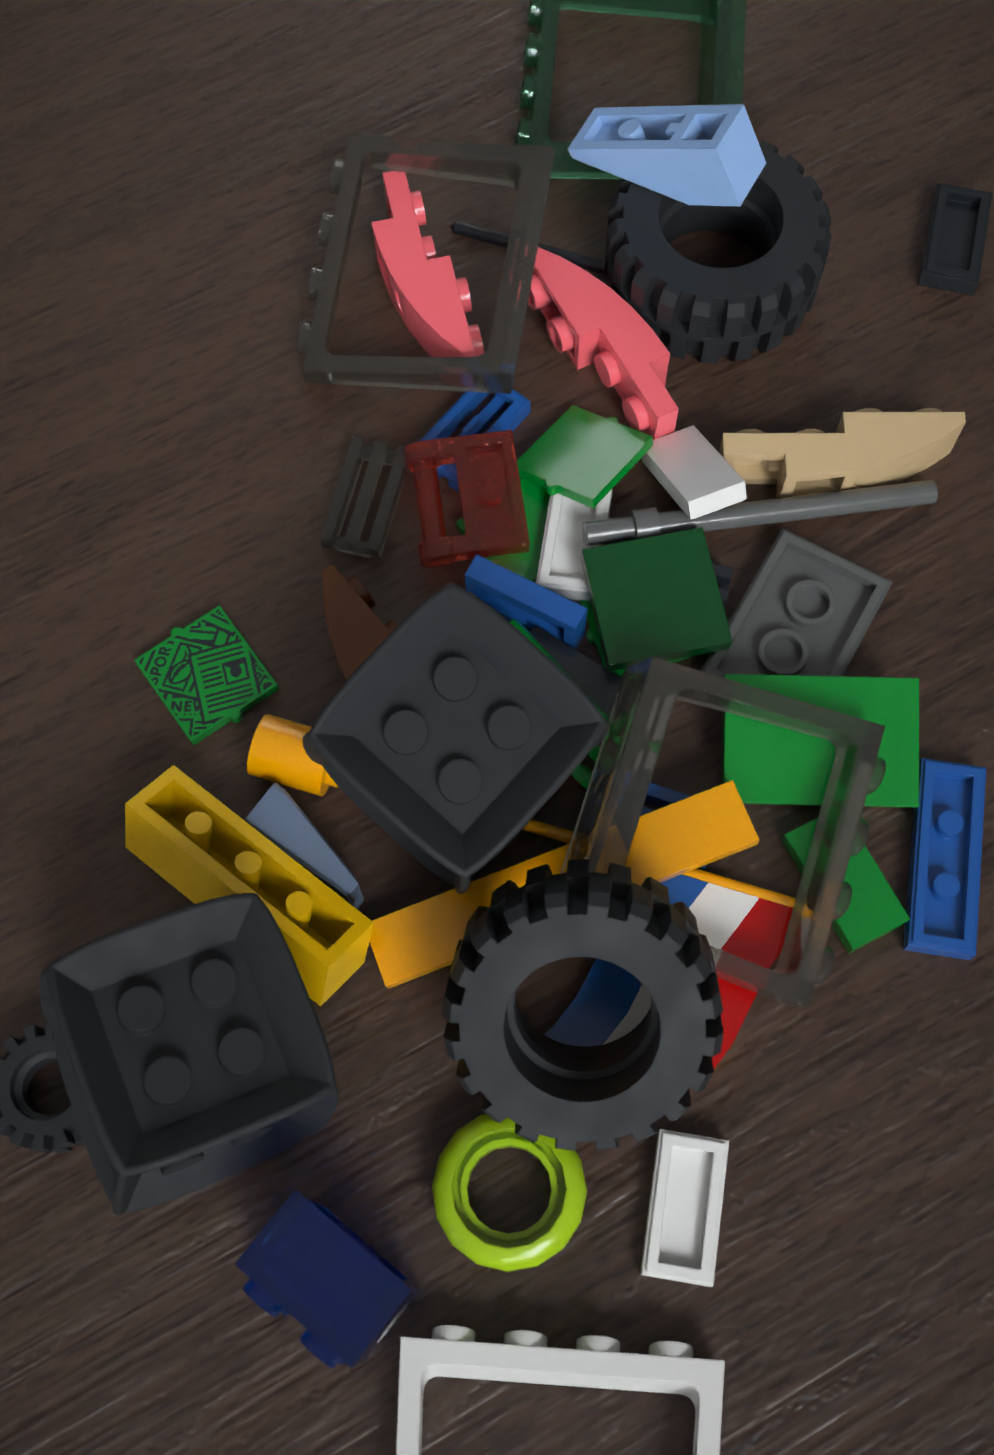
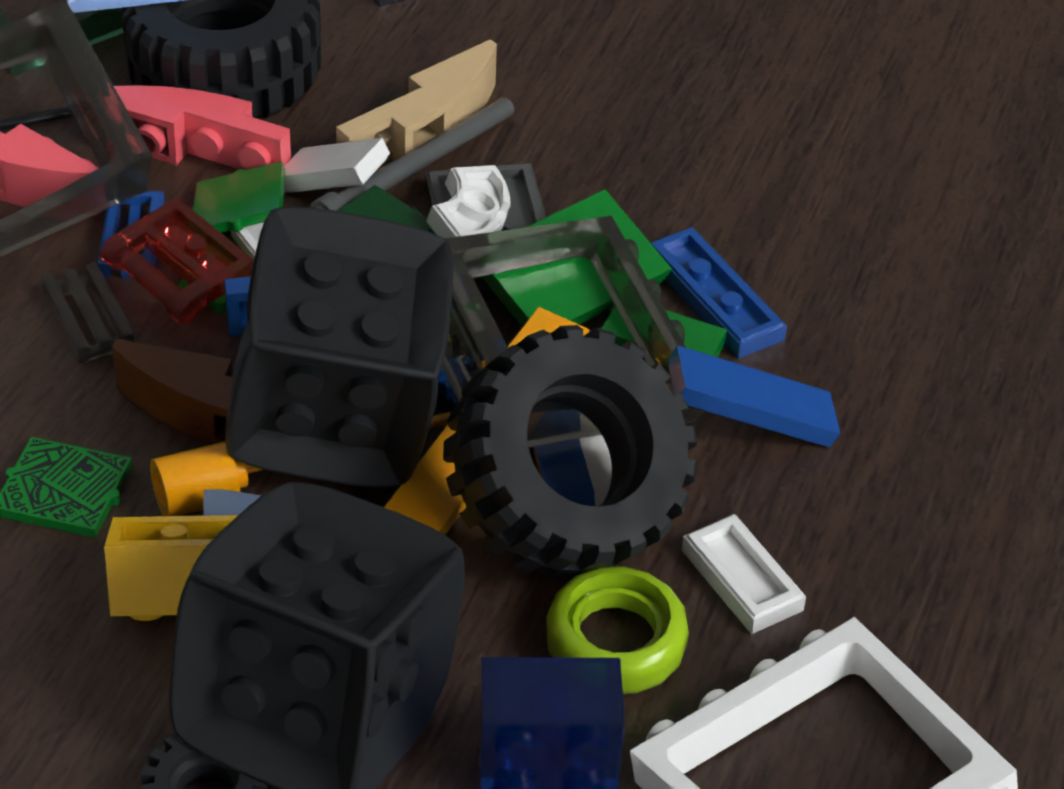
camera: 45 degrees left, 25 degrees down
(776, 619) = (476, 203): none -> white tile
(850, 1032) = (753, 396): none -> blue tile

